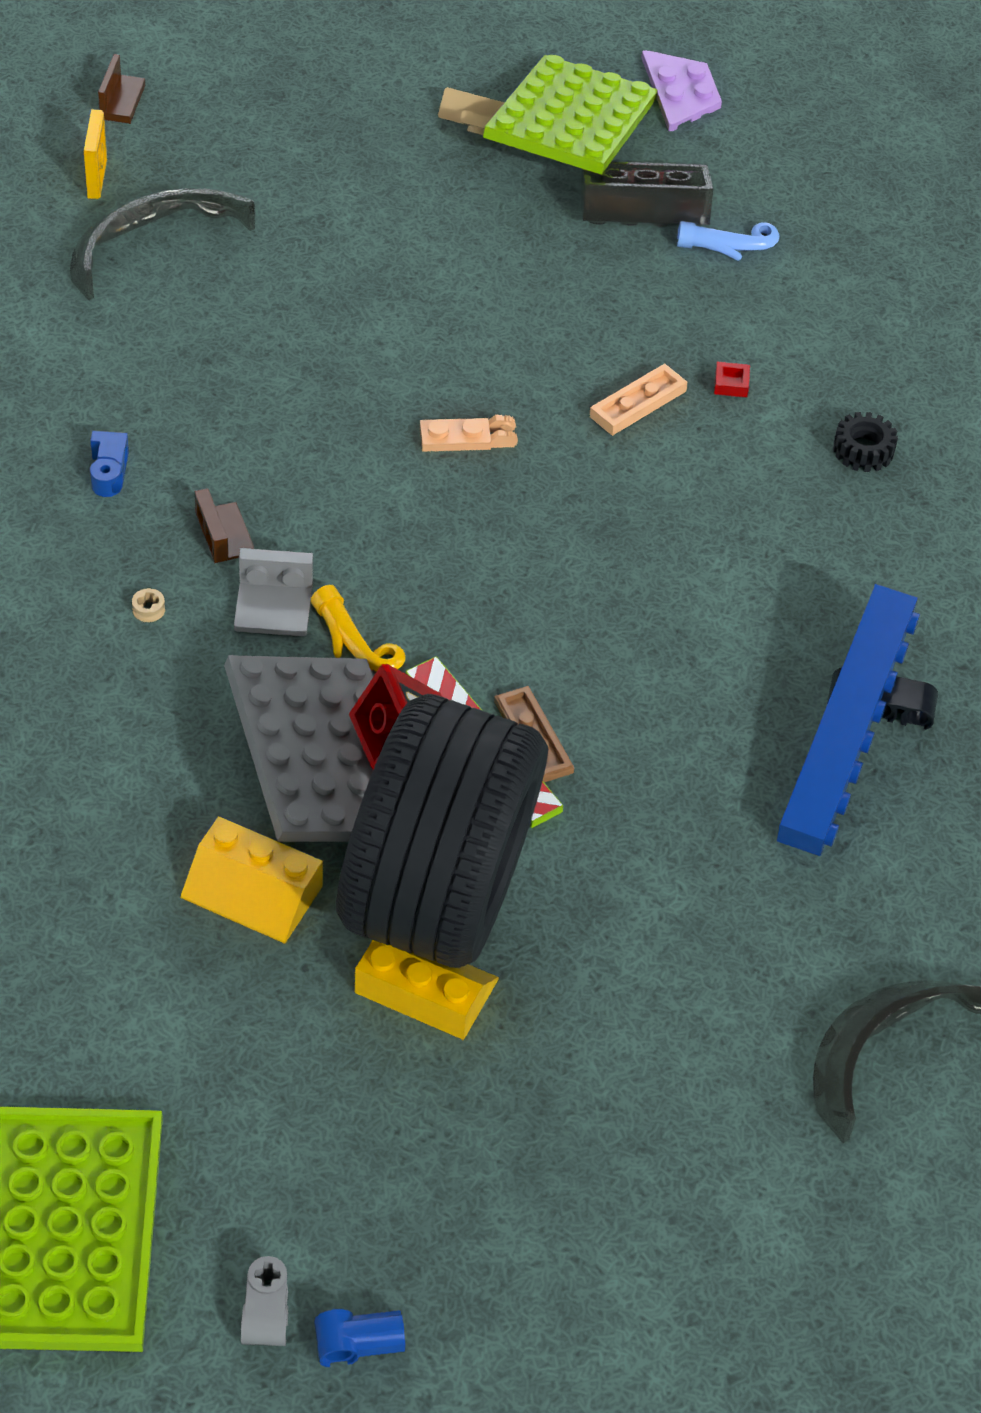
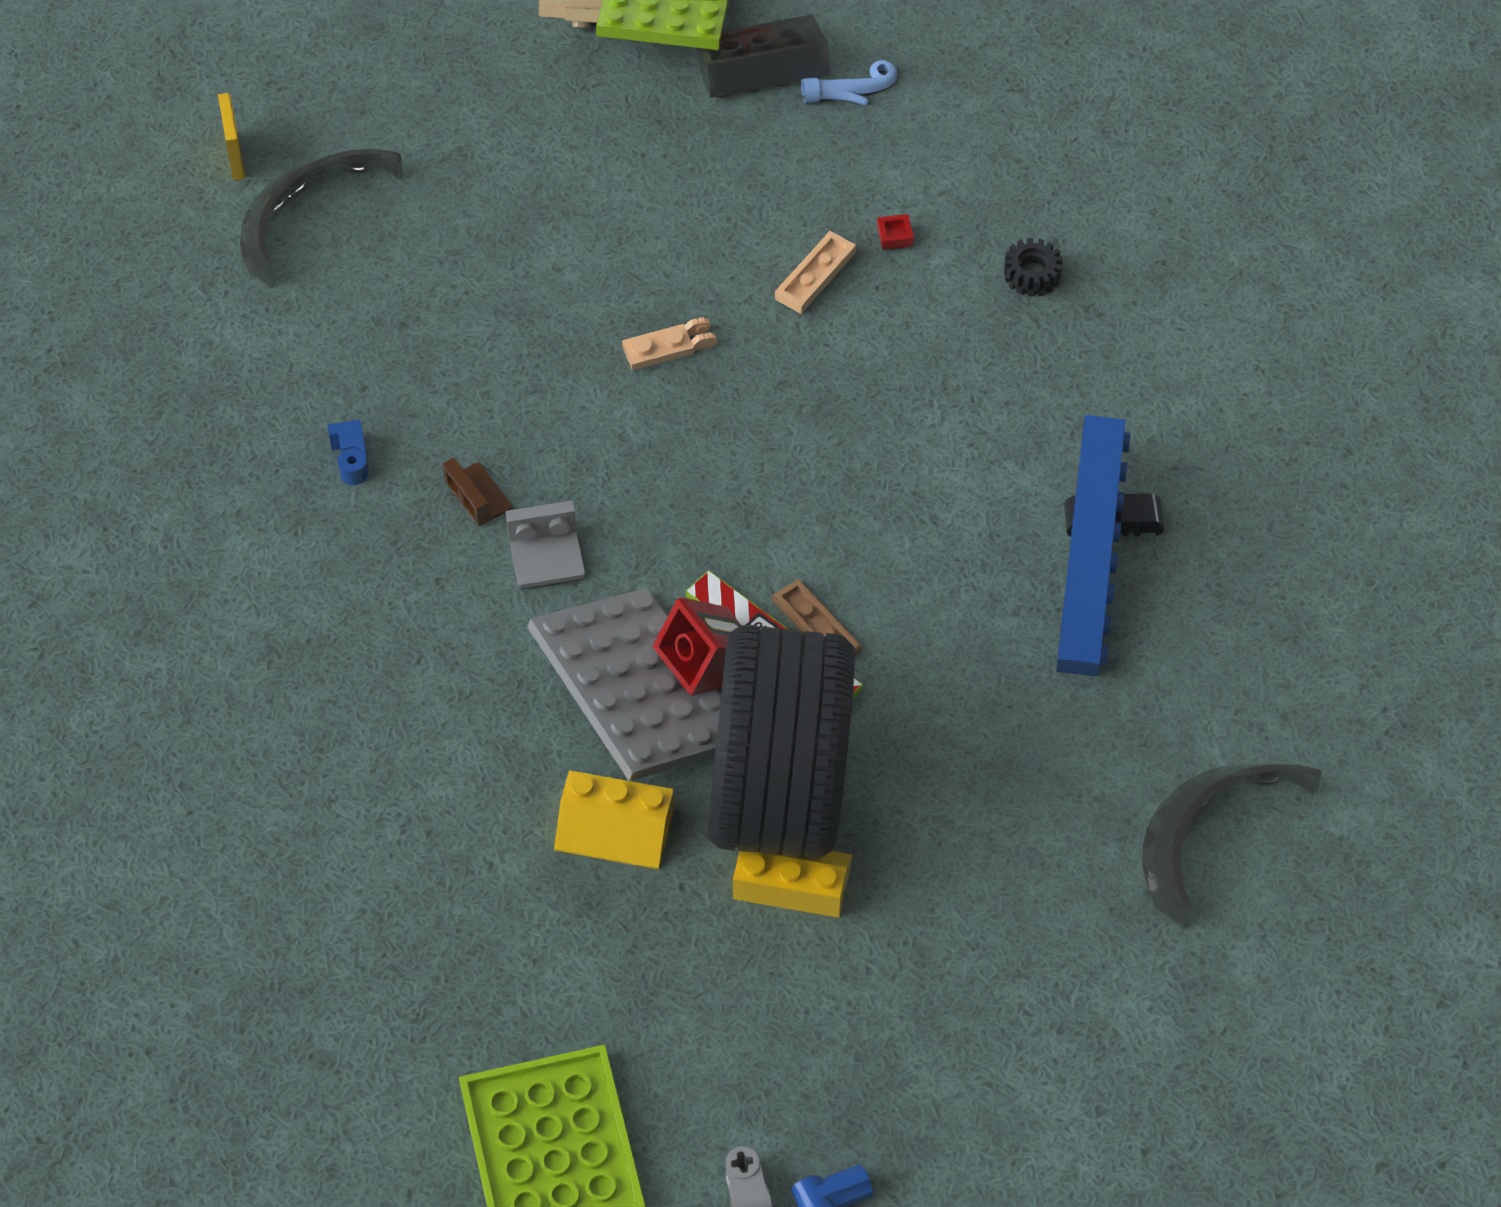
camera: 10 degrees left, 5 degrees up
(119, 93) = (228, 63): reddish brown panel -> none
(148, 595) = (442, 579): tan bush -> none
(330, 605) = (618, 566): yellow plant -> none

